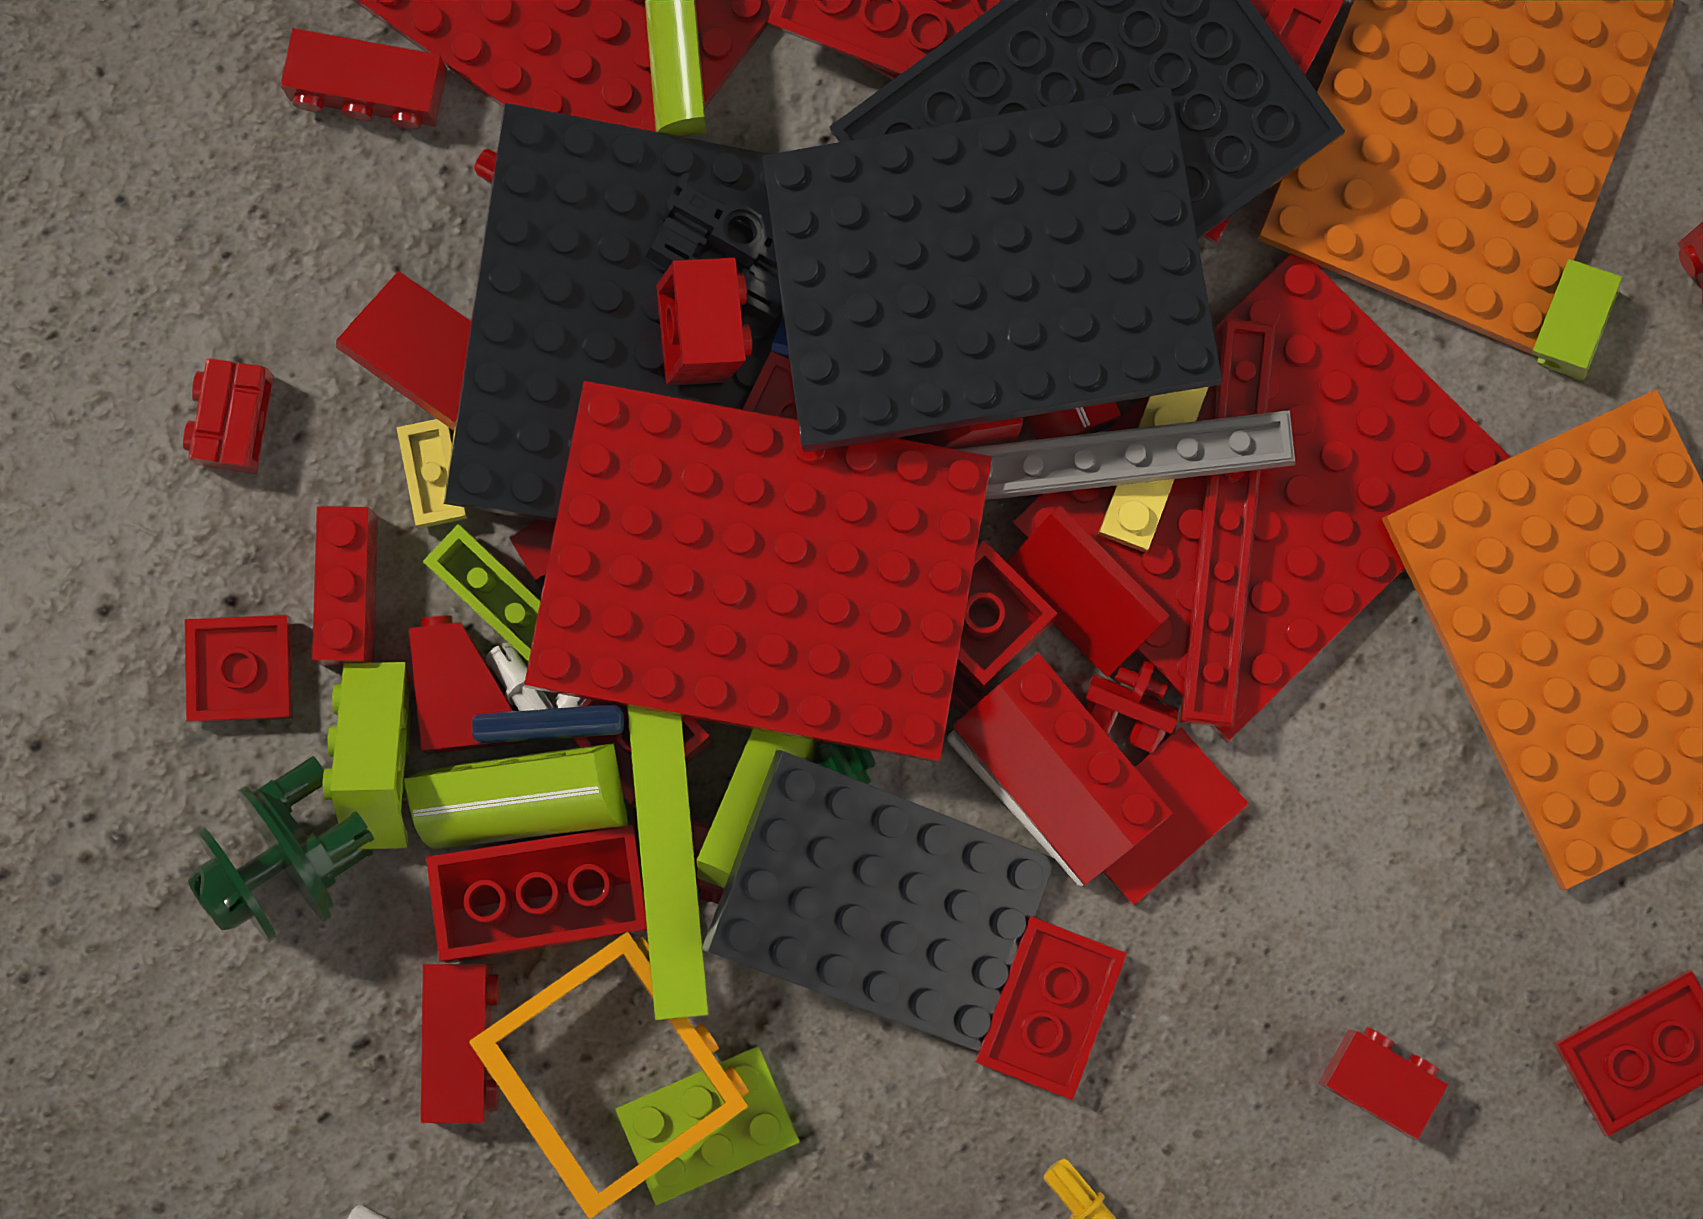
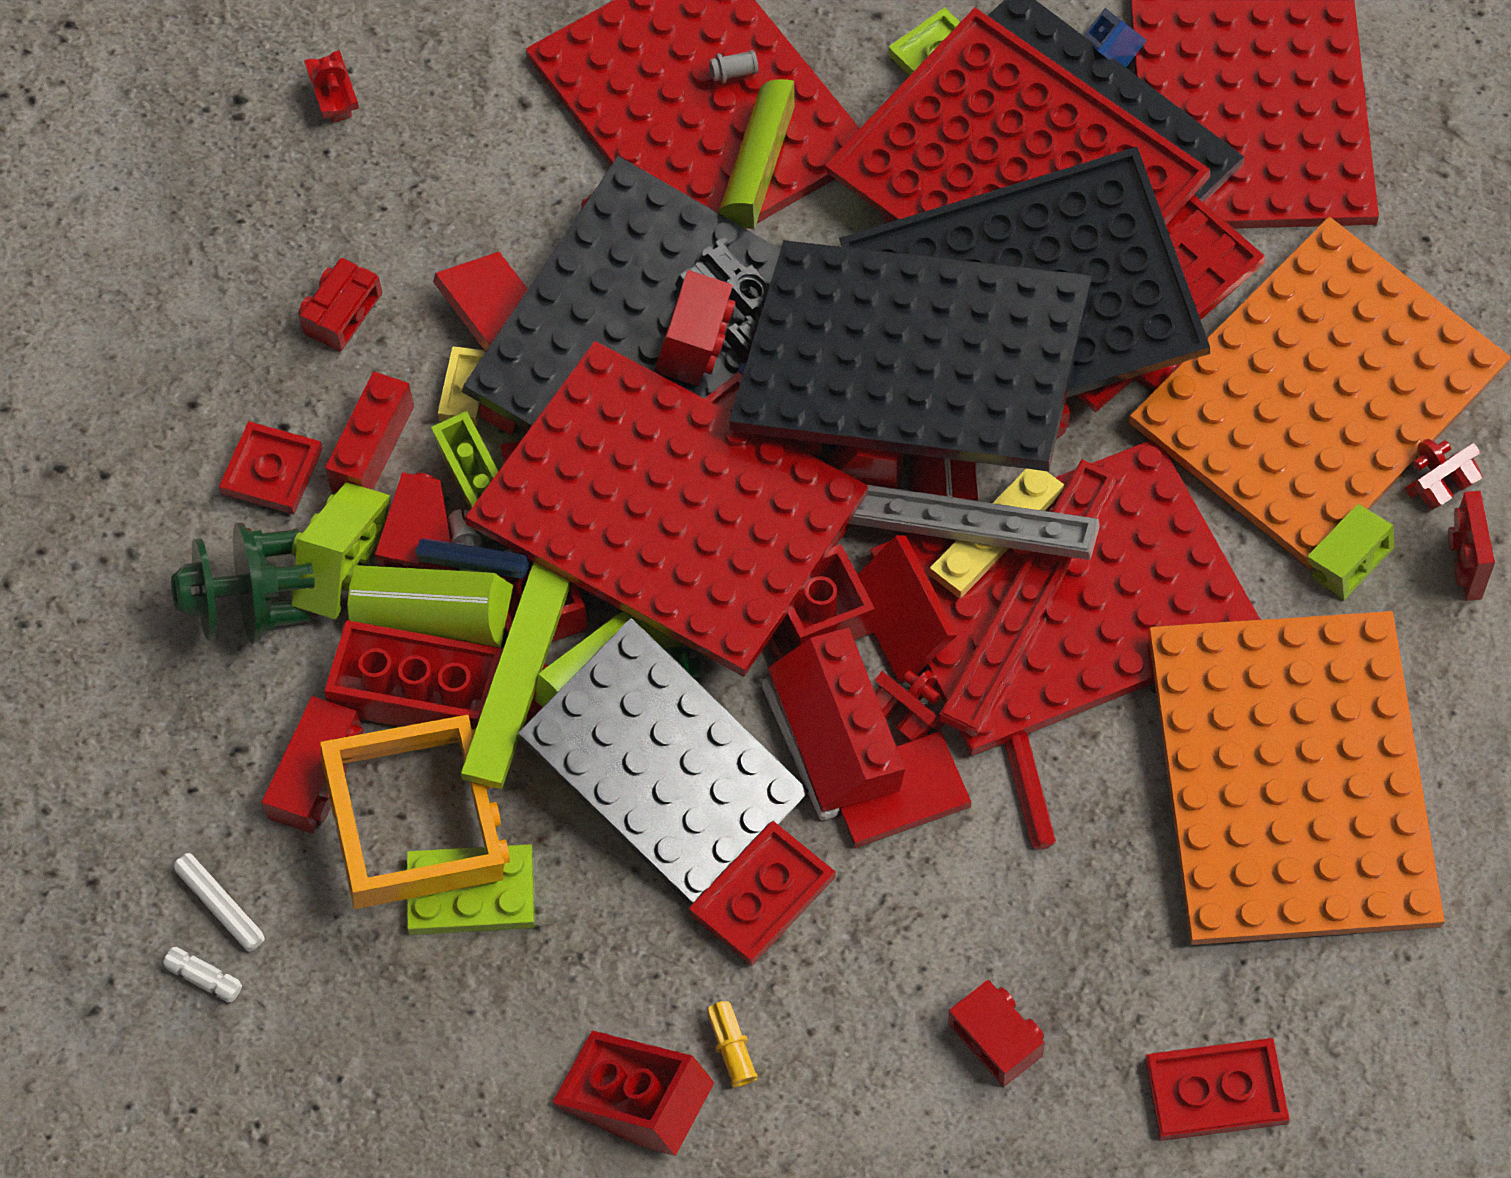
camera: 25 degrees right, 20 degrees down
(89, 111) = (332, 86): none -> red hips
(363, 79) = (529, 124): red brick -> none
(1310, 763) = (1030, 792): none -> red axle
(1642, 174) = (1431, 485): none -> hips

